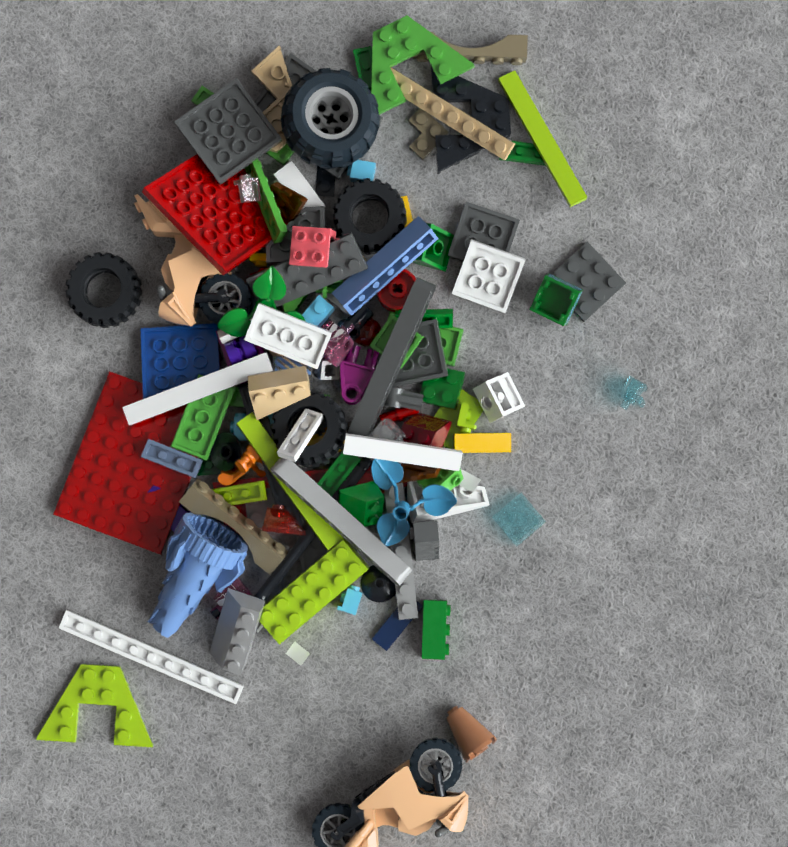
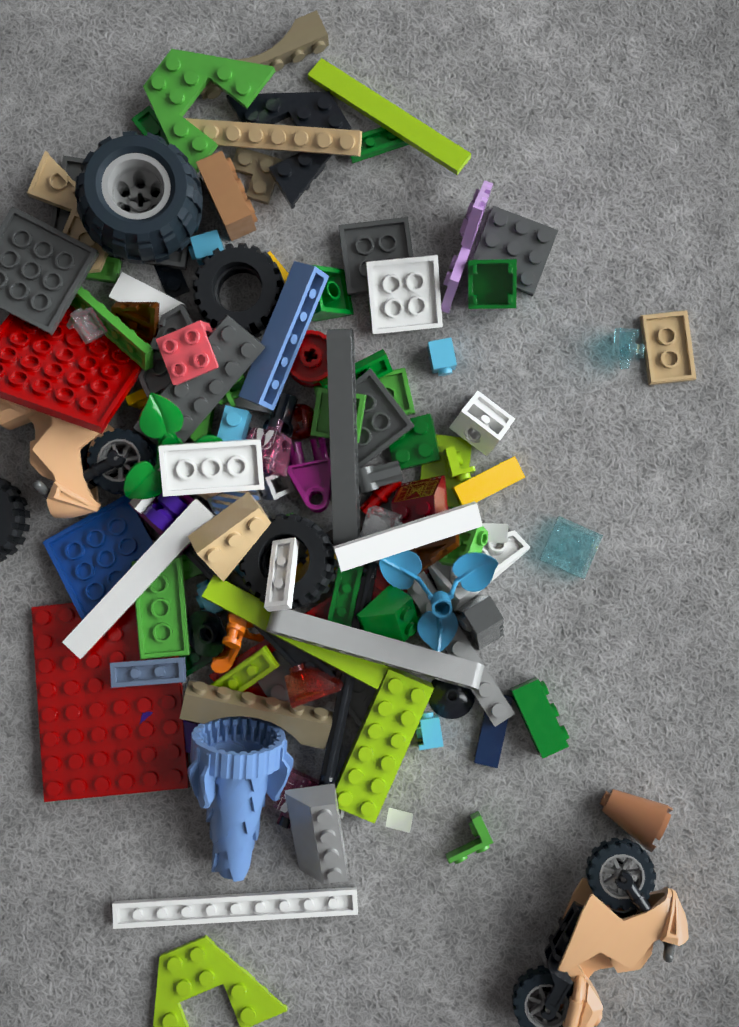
camera: 30 degrees left, 0 degrees up
(351, 687) = (479, 845): none -> bright green bracket
(395, 142) = (228, 195): none -> medium nougat brick
(493, 334) = (442, 356): none -> medium azure brick
(552, 257) = (468, 232): none -> lavender wing
(664, 408) = (667, 347): none -> tan tile

